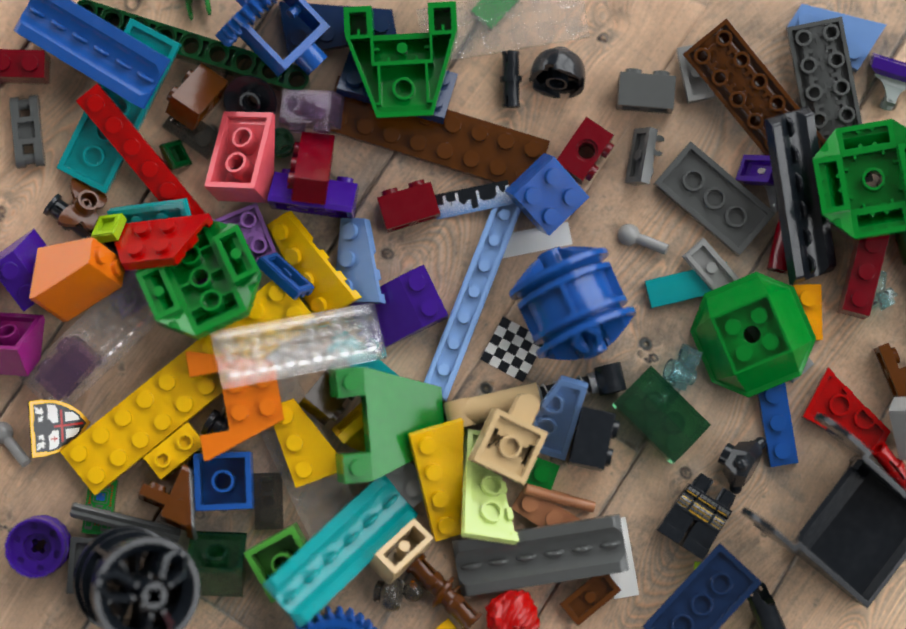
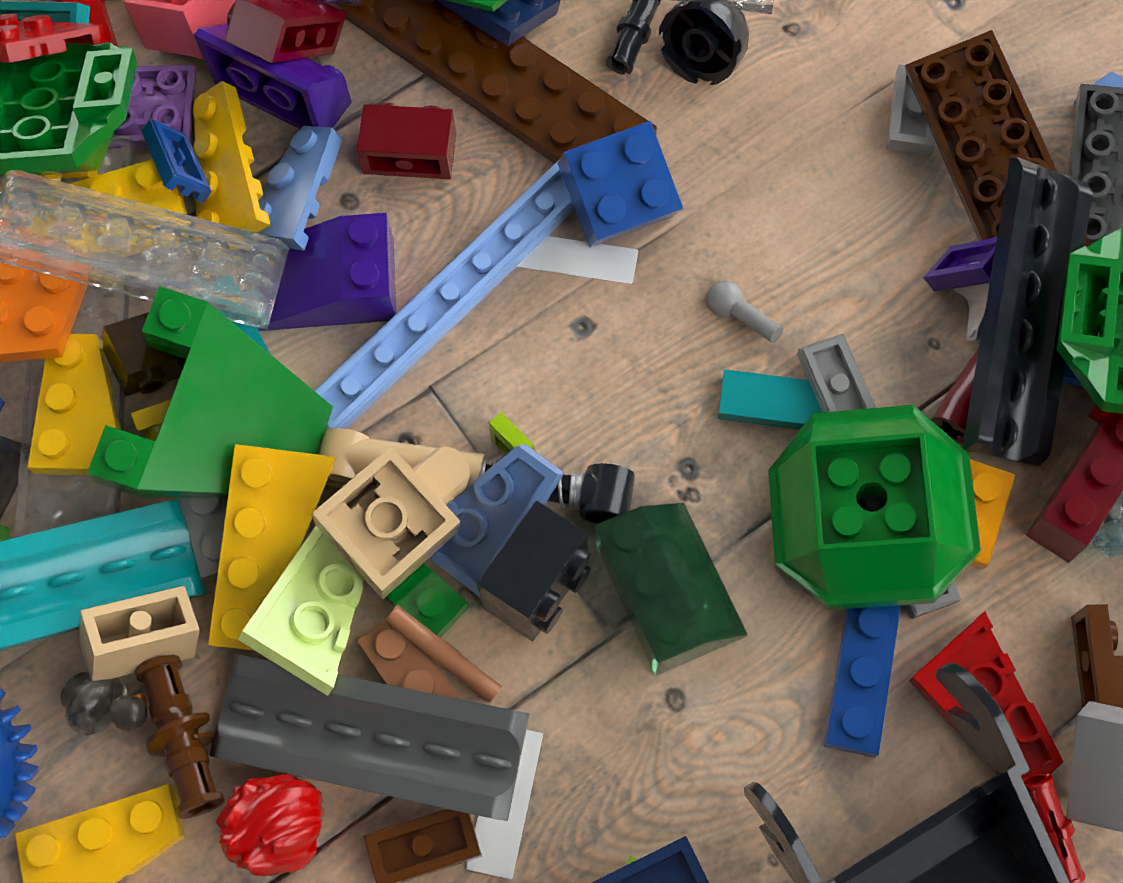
camera: 25 degrees right, 15 degrees down
(473, 199) = (506, 167): sticker -> none
(511, 349) = (472, 397): sticker -> none
(547, 369) = (506, 434): none -> lime tile
(572, 303) = (589, 335): blue wheel -> none
(589, 135) = (712, 134): dark red brick -> none
(642, 155) = (791, 188): dark grey plate -> none
(646, 91) = (828, 108): dark grey brick -> none
(682, 371) = (730, 527): clear light blue plate -> none
(704, 511) = (674, 762): black hips -> none
(714, 198) = (881, 291): dark grey plate -> none
(741, 462) = (776, 714): black rock -> none

